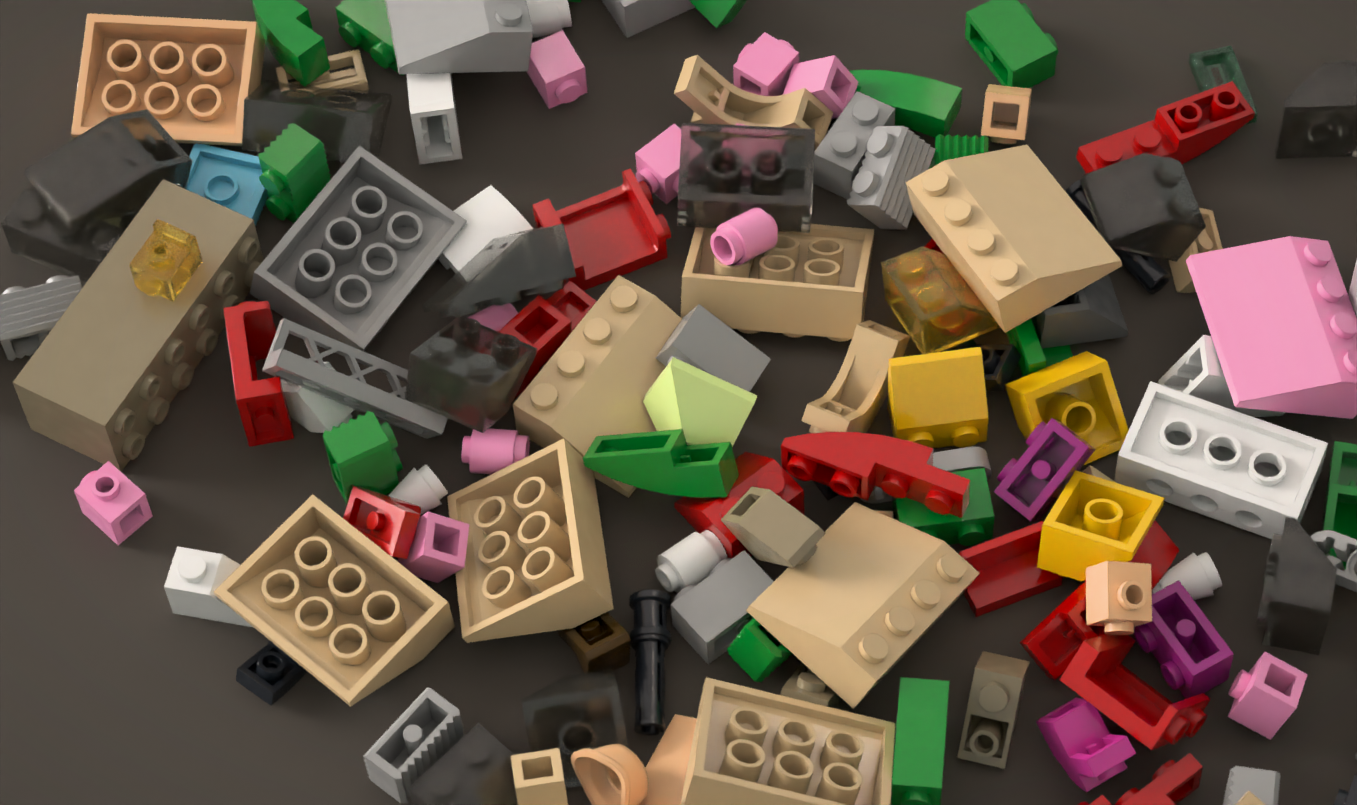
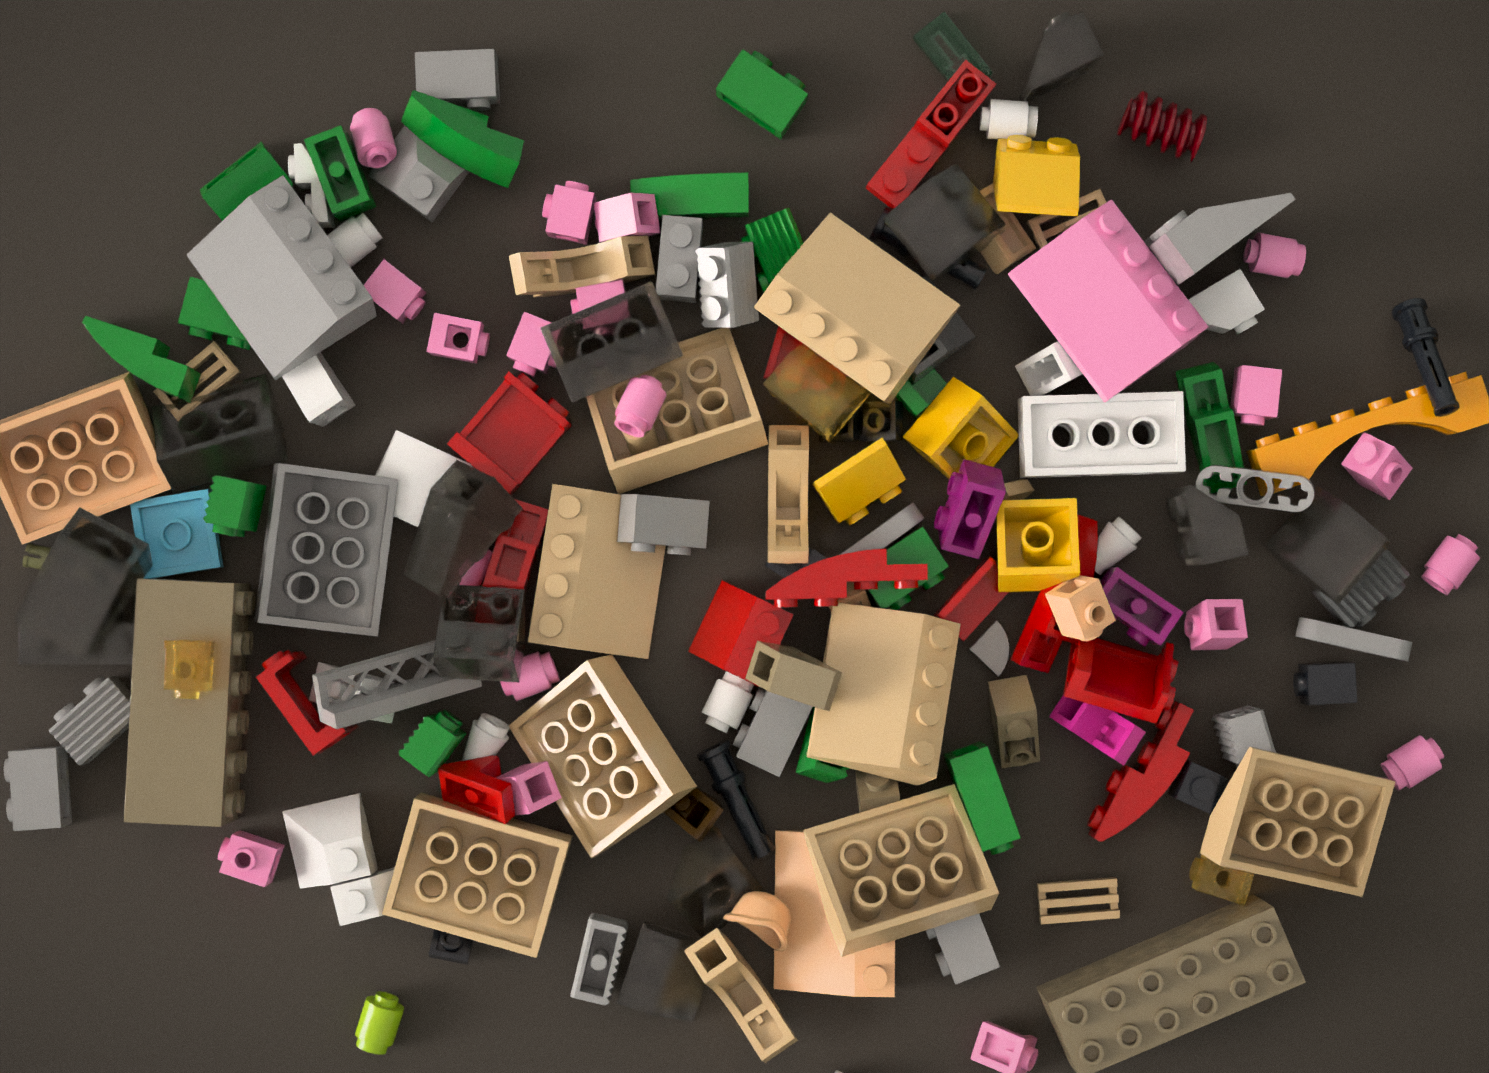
camera: 30 degrees left, 30 degrees up
(144, 716) = (378, 1023): none -> lime brick
(200, 520) = (330, 841): none -> white slope
(594, 129) = (443, 334): none -> bright pink brick
(665, 463) = (672, 641): green slope -> none
(697, 403) = (681, 589): yellowish green slope -> none
(1004, 630) = (992, 648): none -> light grey tile
(1006, 113) = (791, 172): light nougat brick -> none
(1254, 155) = (1008, 118): none -> white brick
(1258, 200) = (1037, 176): none -> yellow slope

